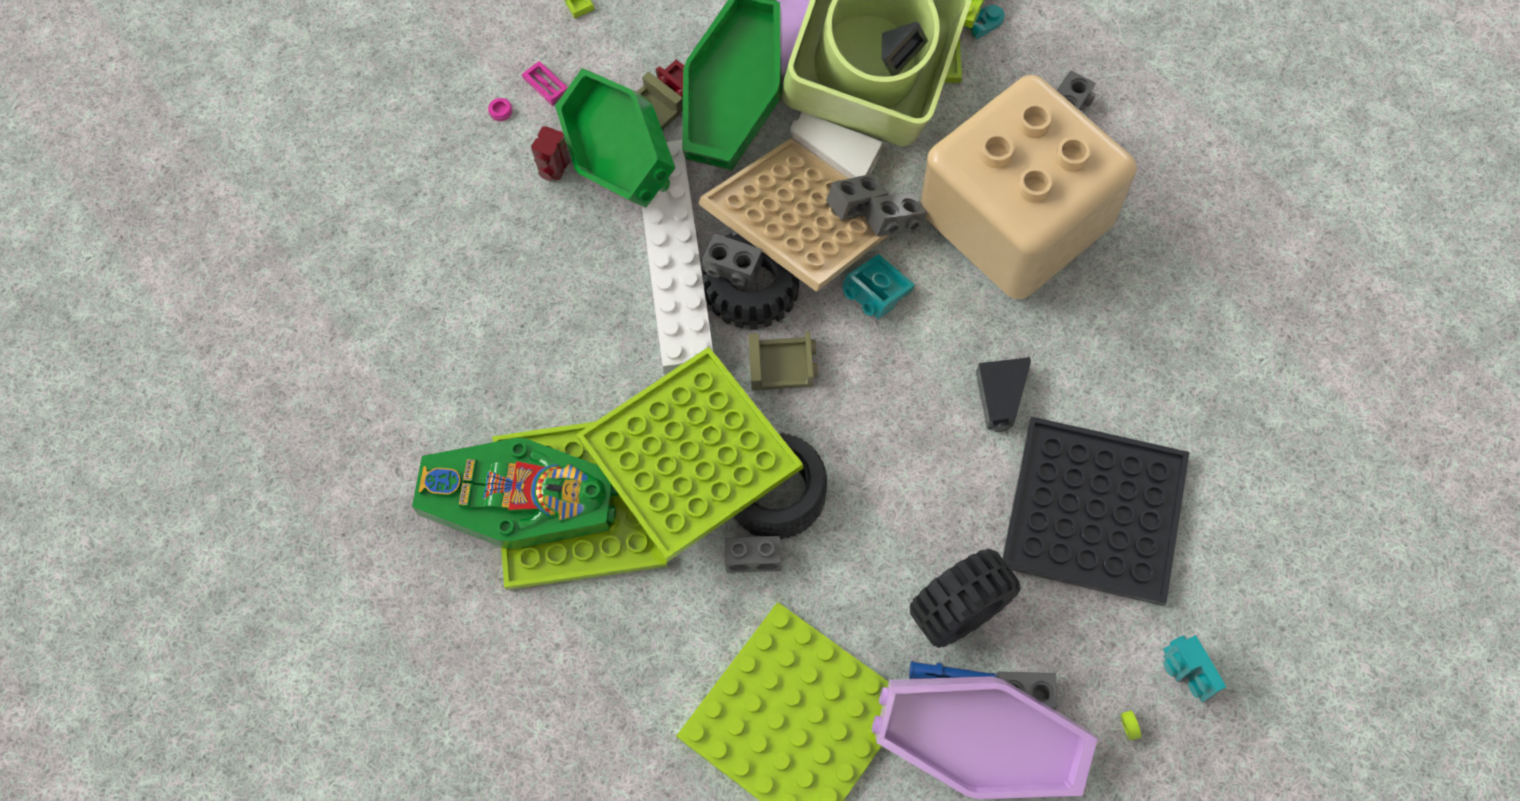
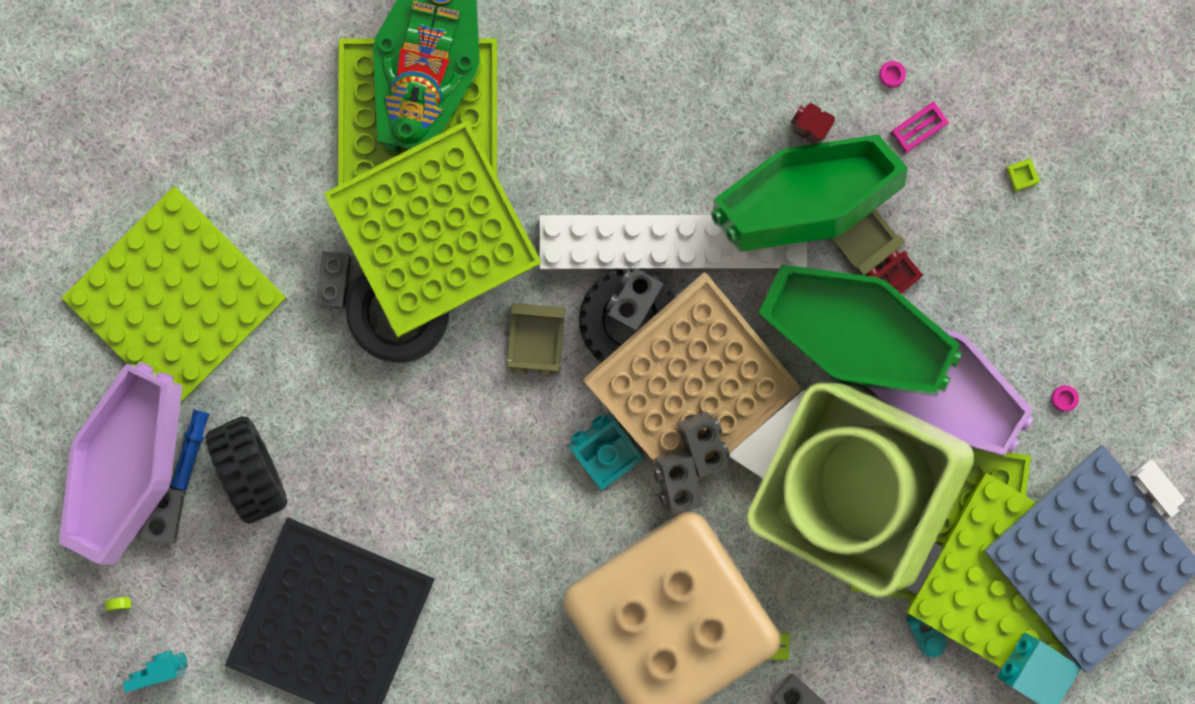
camera: 95 degrees right, 20 degrees up
(901, 46) = (825, 505): black slope -> none
(1001, 390) = (467, 556): black slope -> none

